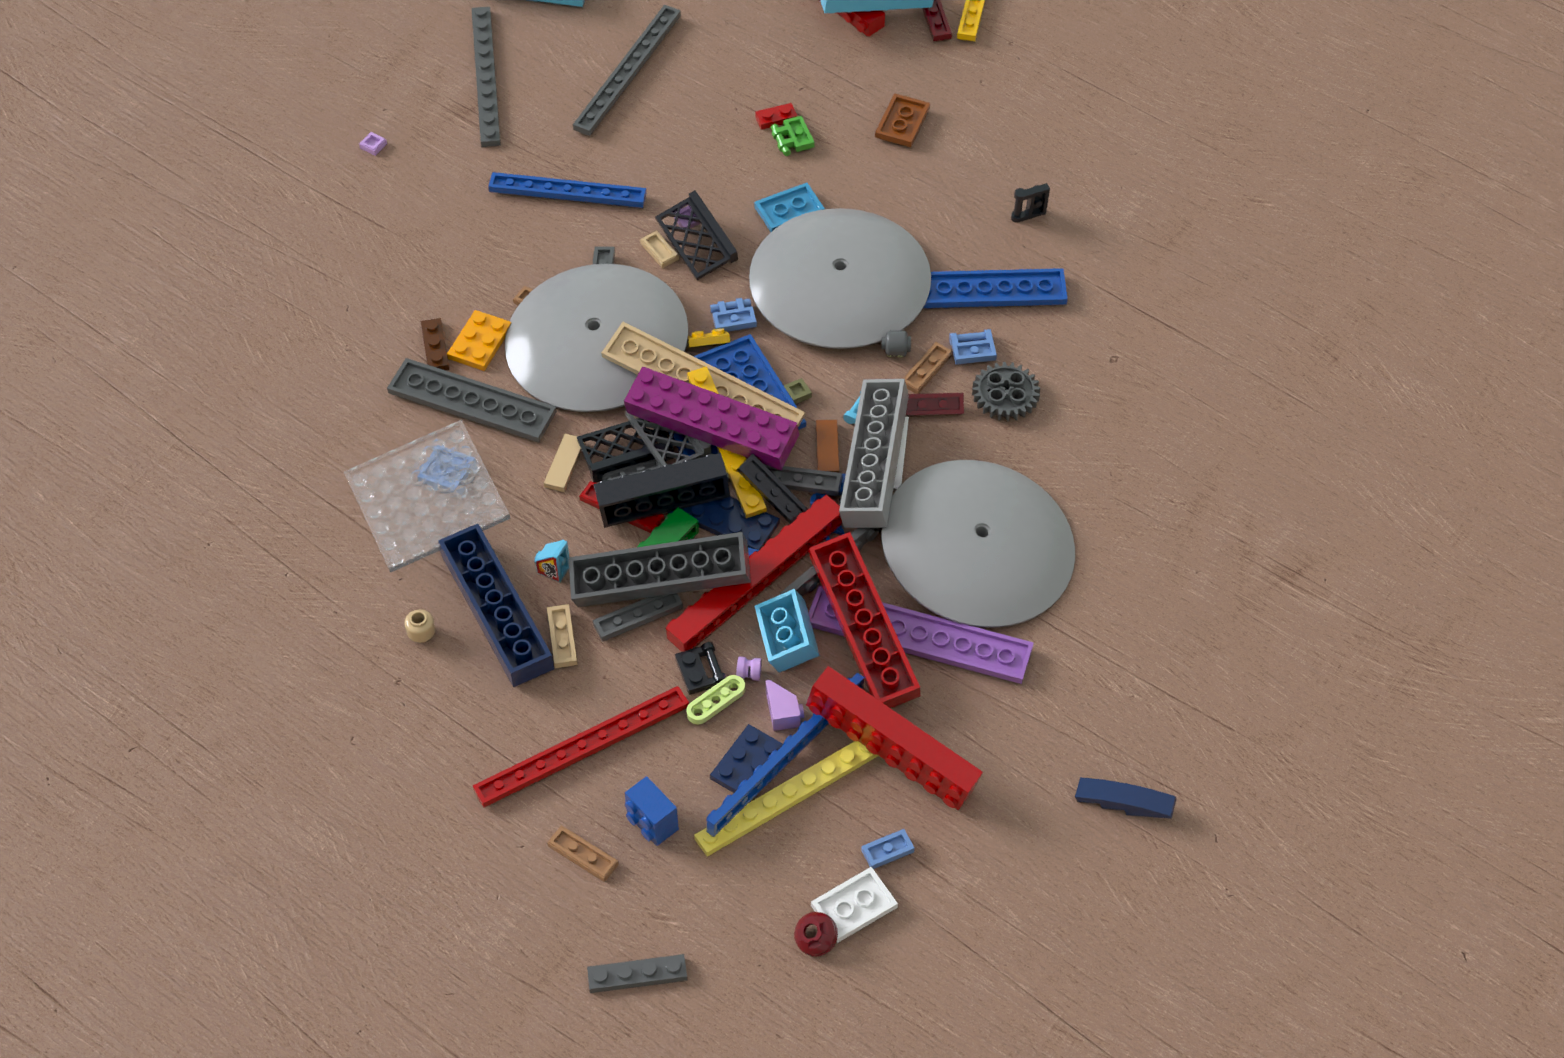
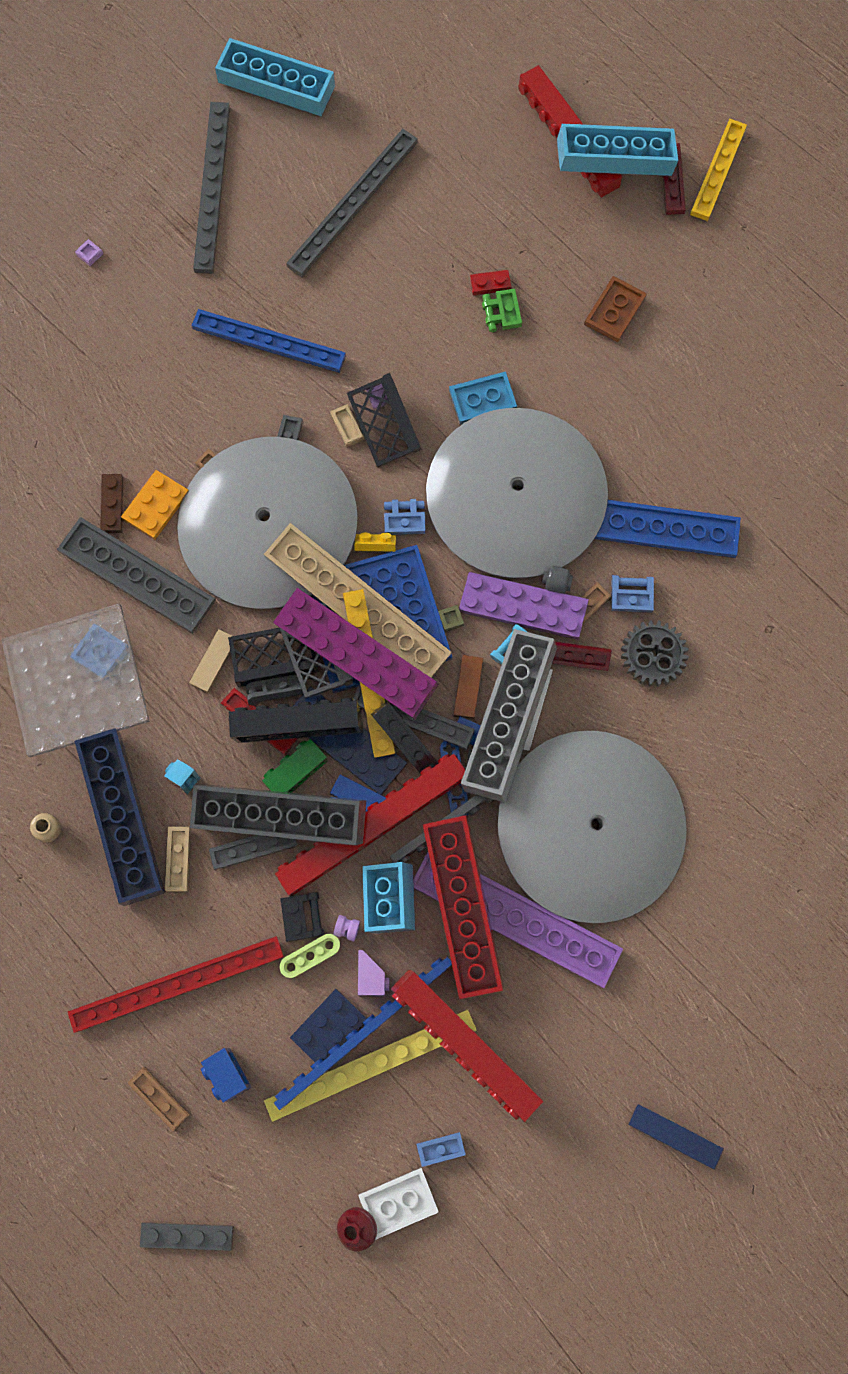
camera: 10 degrees right, 20 degrees up
(849, 369) = (523, 605): none -> medium lavender plate
(1036, 204) = (727, 435): black plate -> none

